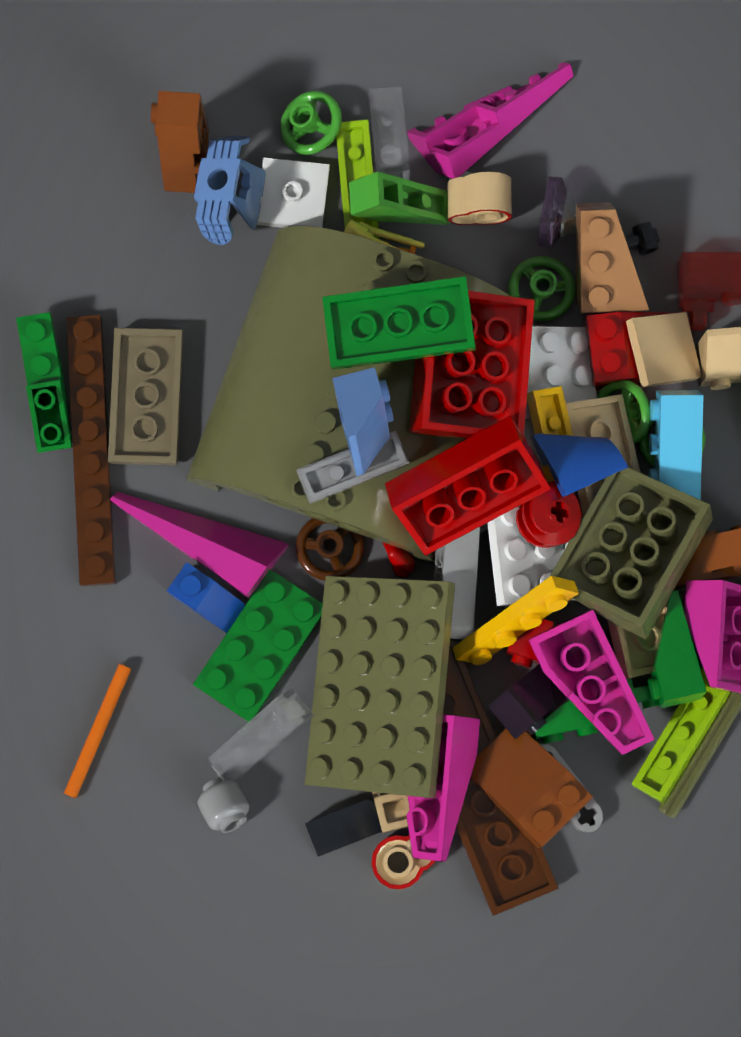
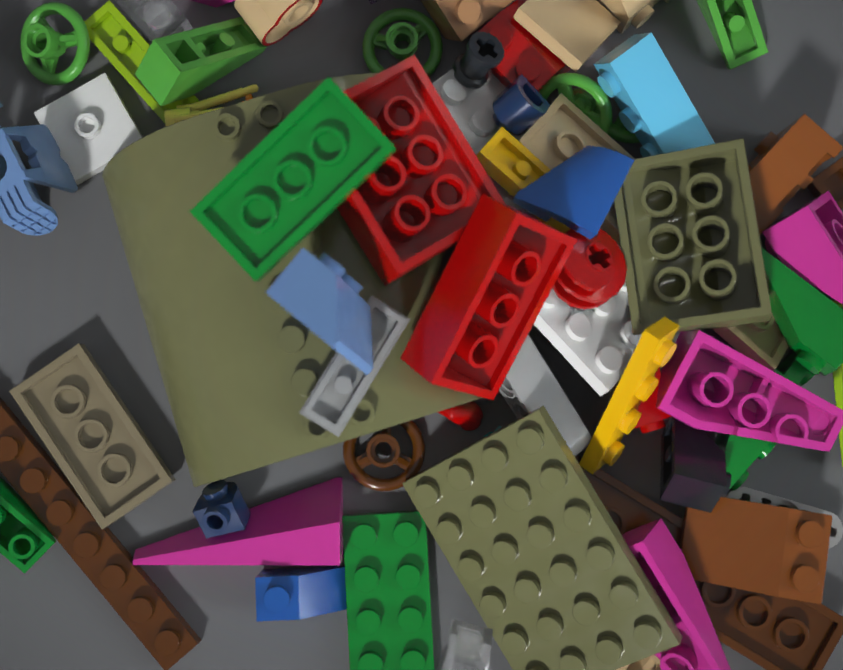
camera: 40 degrees left, 5 degrees up
(195, 504) = (221, 509): none -> dark blue plate
(584, 331) = (482, 54): none -> black bush
(584, 382) = (519, 106): none -> dark blue plate

